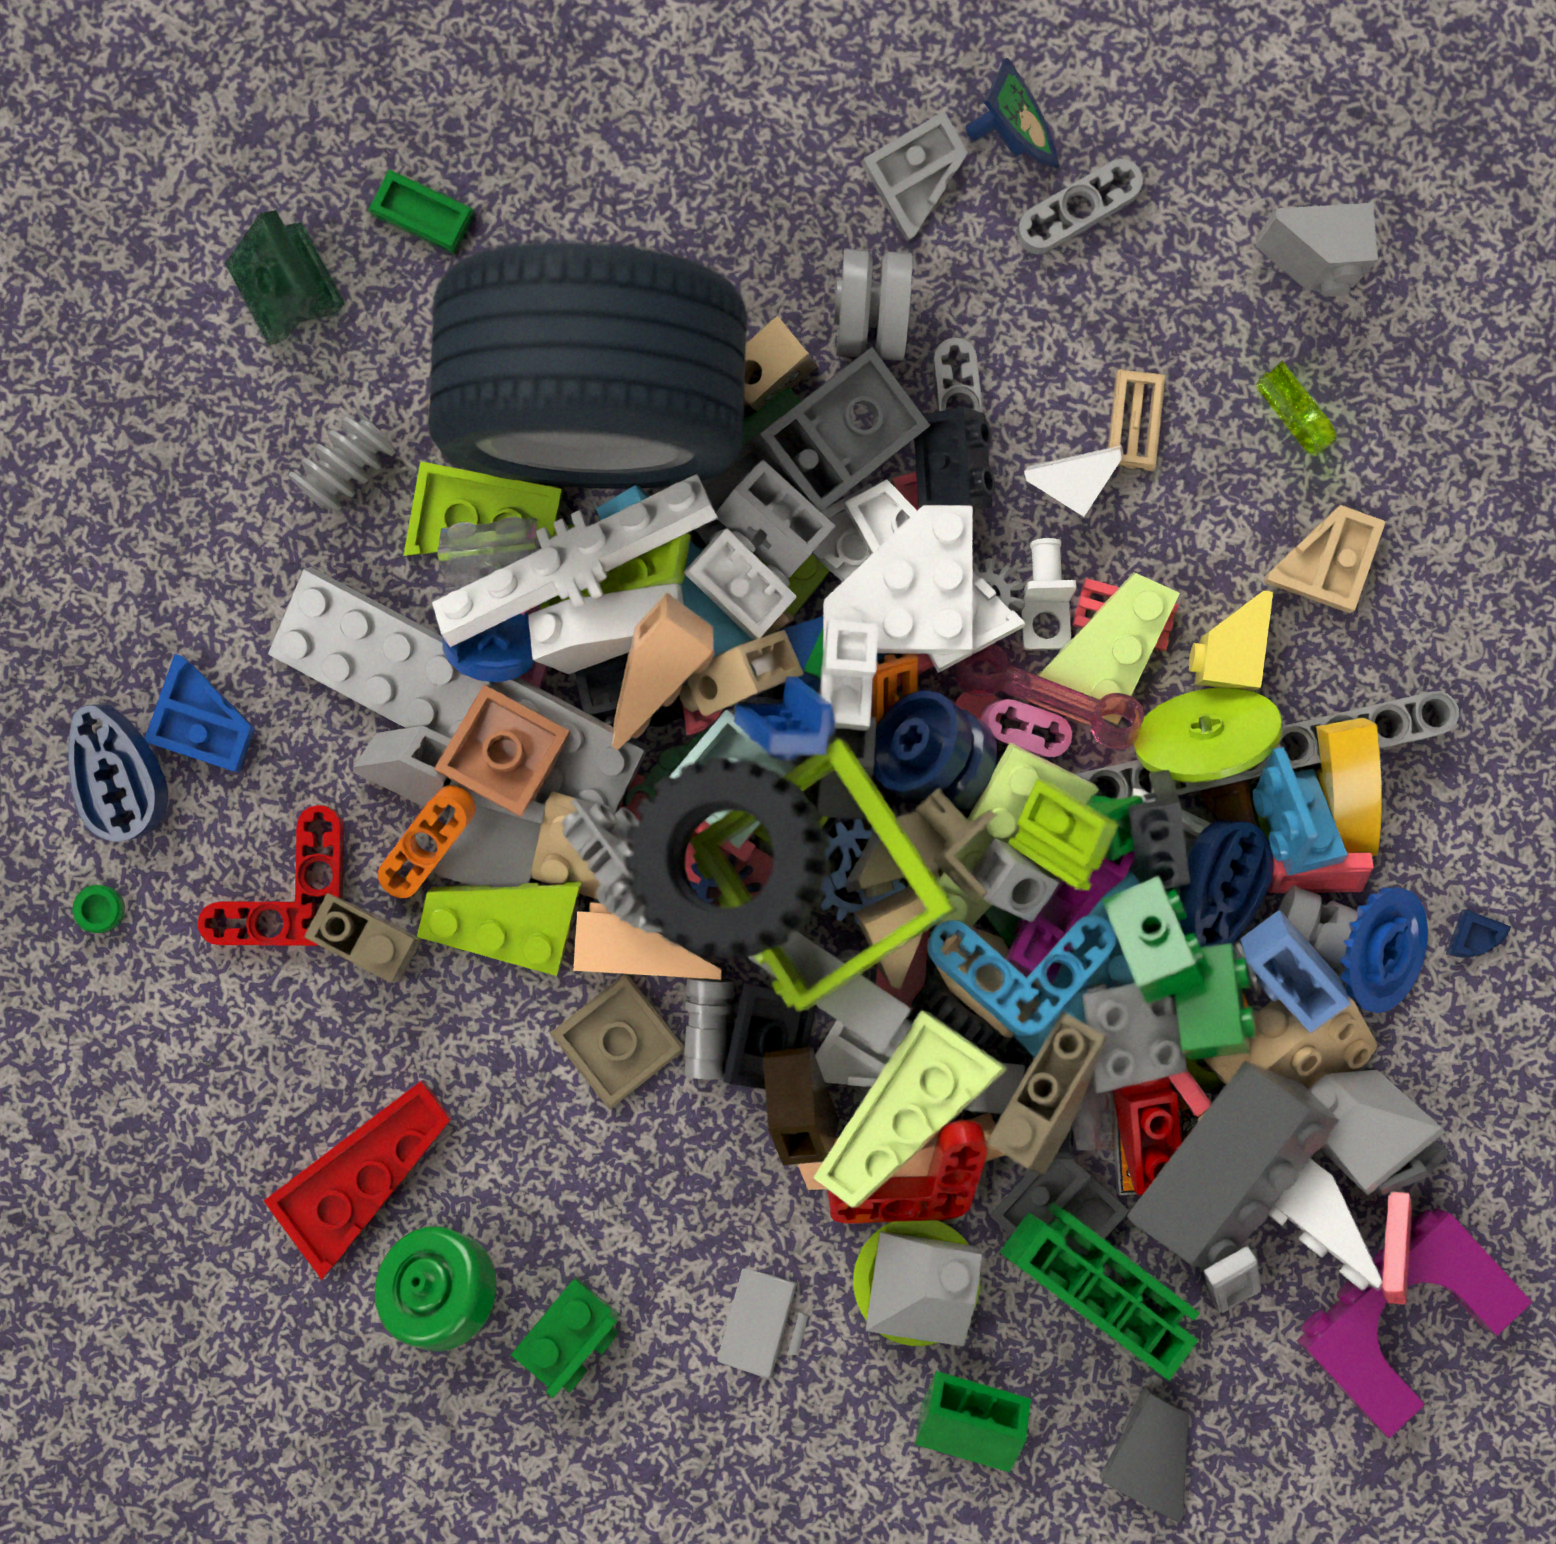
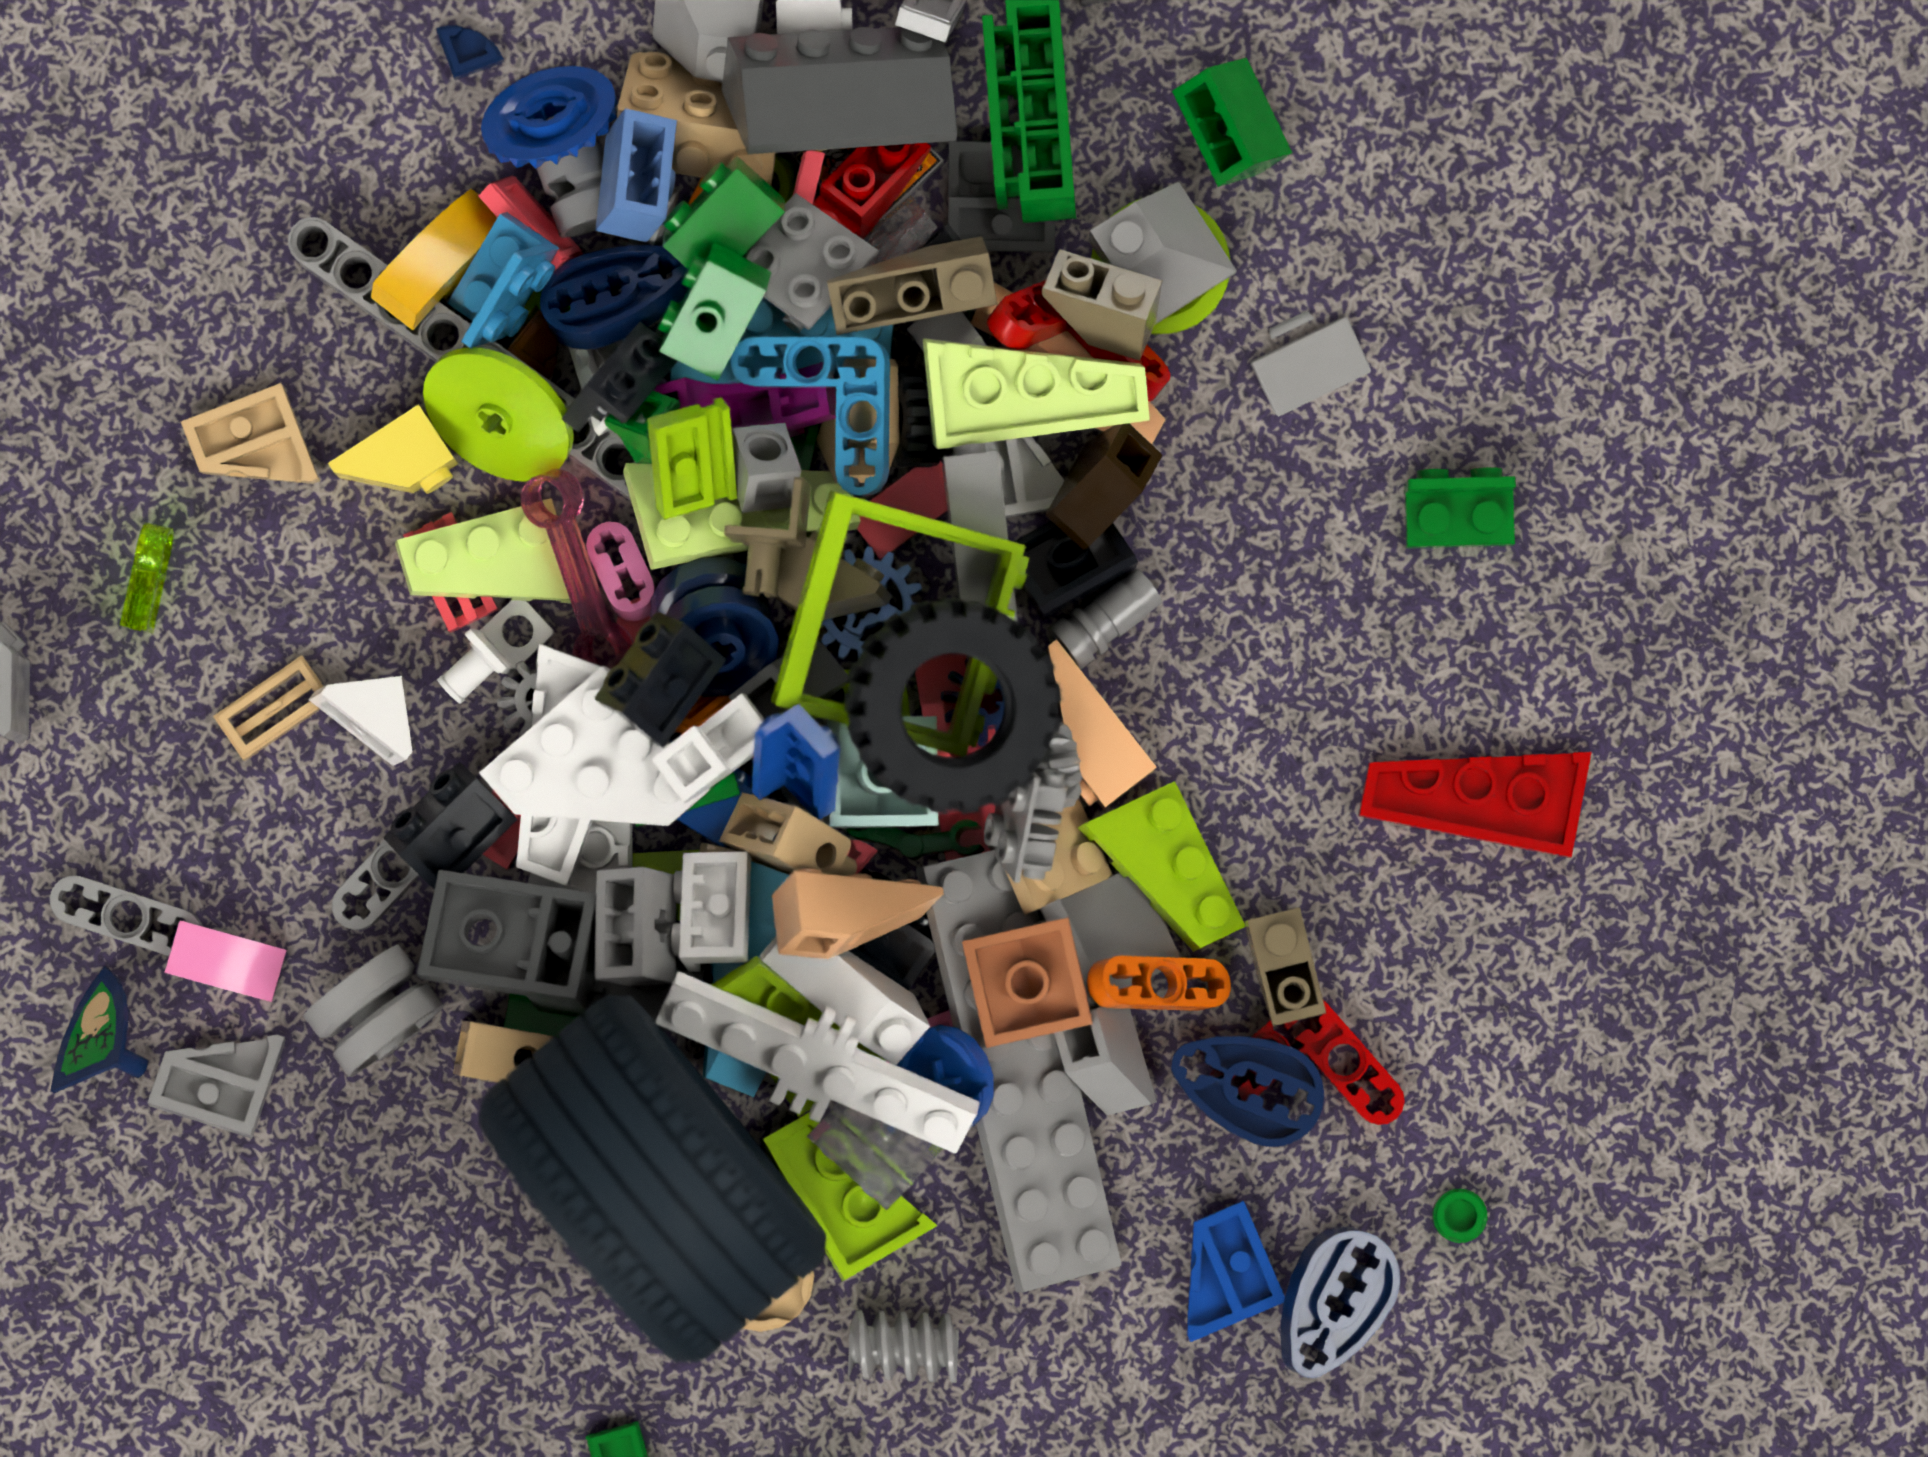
camera: 130 degrees left, 0 degrees up
(285, 823) = (1247, 1118): none -> dark blue piece
(435, 1288) = (1514, 650): green wheel -> none
(617, 1040) = (1183, 683): dark tan tile -> none
(884, 918) = (887, 544): tan slope -> none
(923, 1219) = (1104, 302): none -> dark tan slope
(928, 679) = (660, 677): none -> black bracket
(993, 242) = (225, 961): none -> bright pink slope

